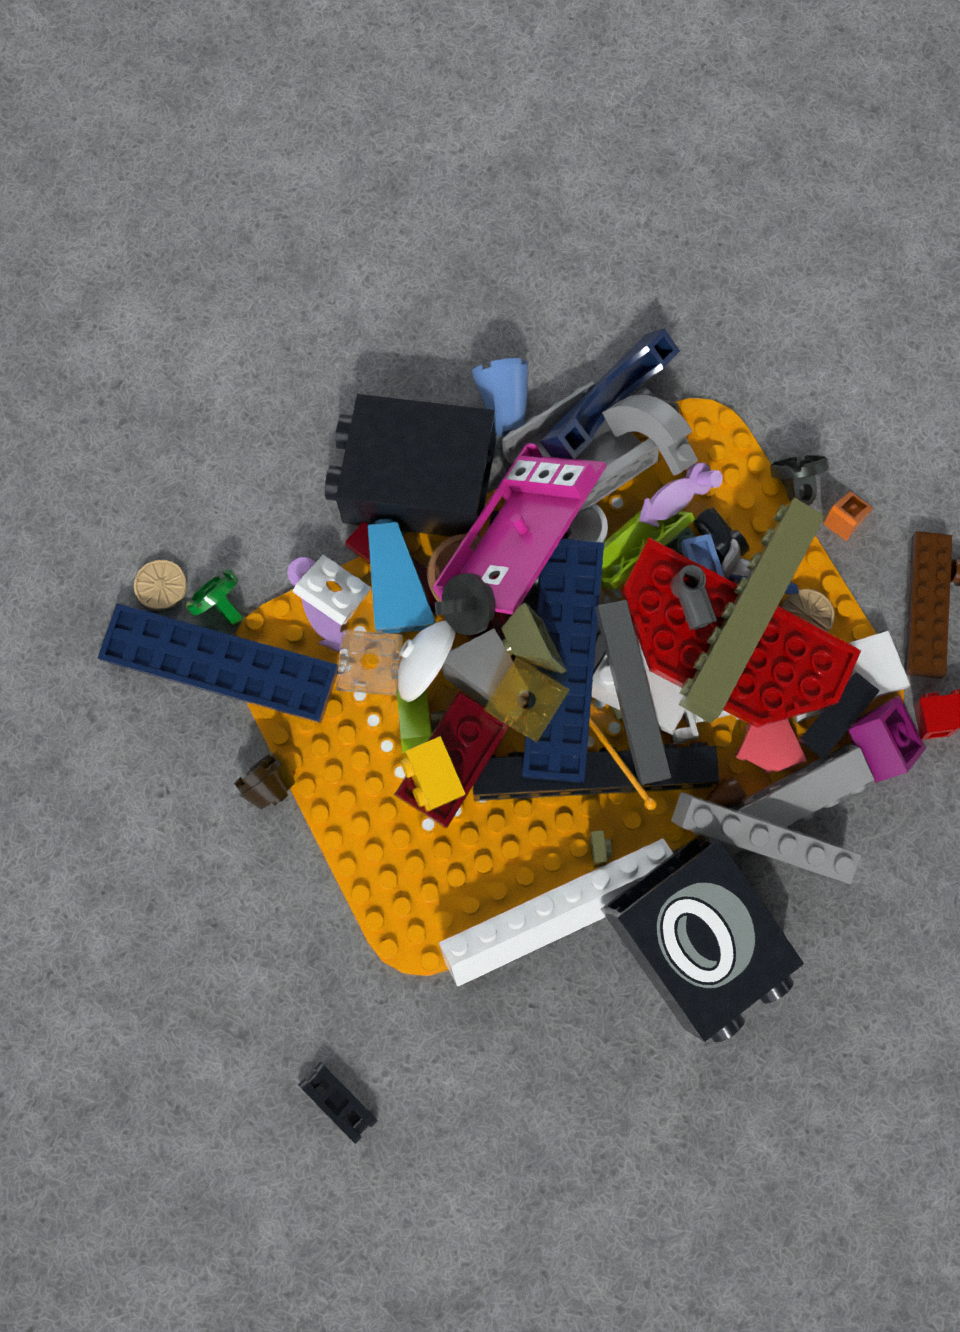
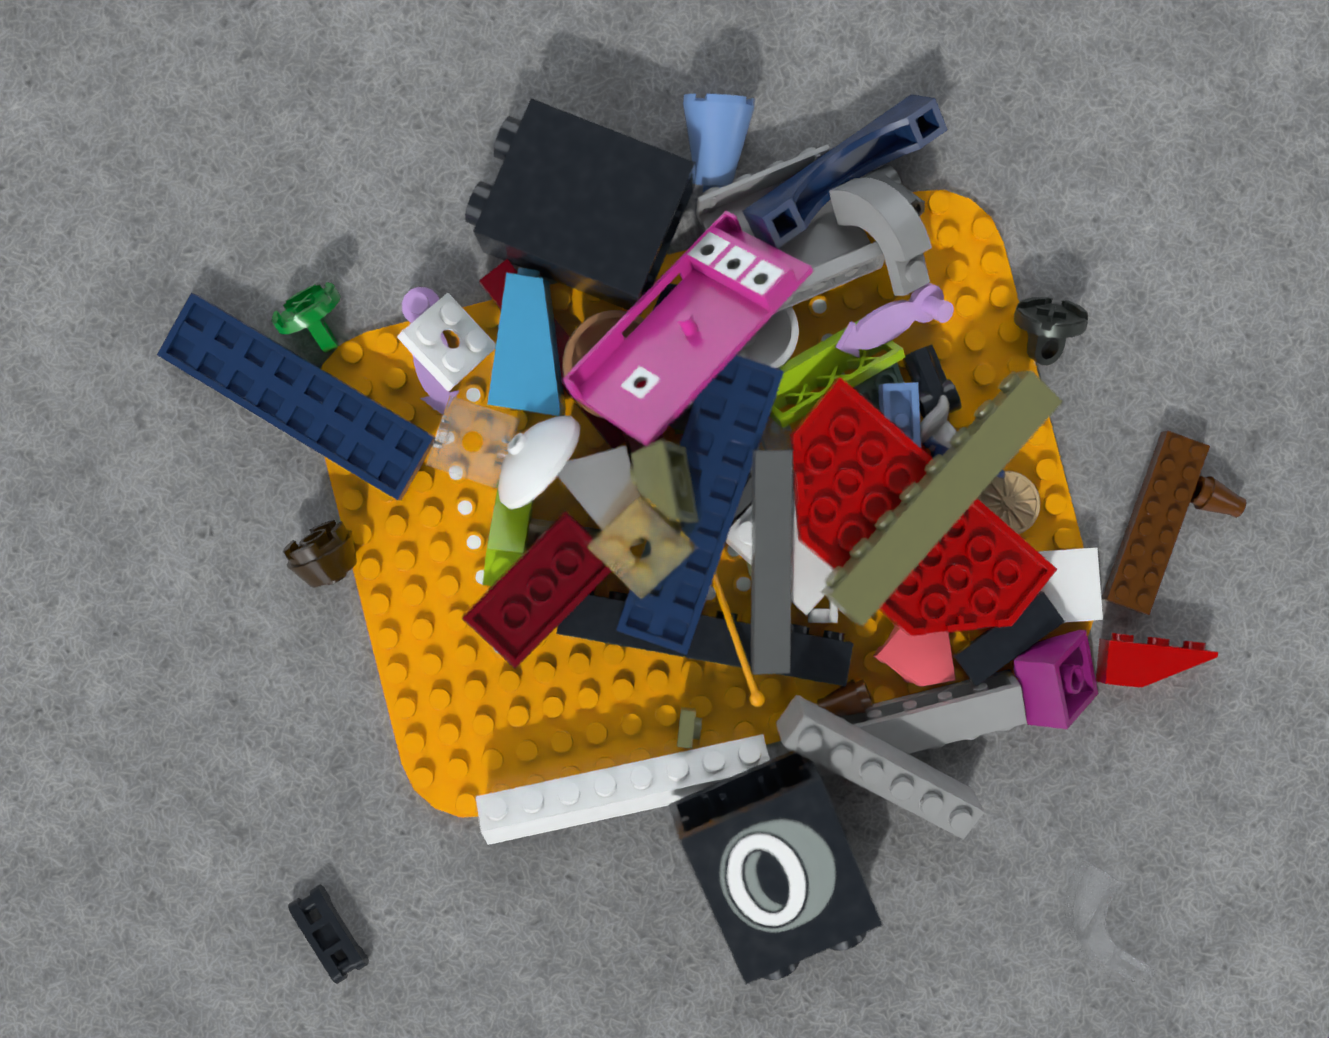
camera: 15 degrees right, 15 degrees up
(160, 585) = (250, 278): tan wheel -> none
(432, 774) = (509, 609): yellow brick -> none
(467, 604) = (595, 415): pearl dark grey tile -> none
(693, 600) = (874, 473): dark grey piece -> none
(847, 515) = (1093, 388): orange slope -> none

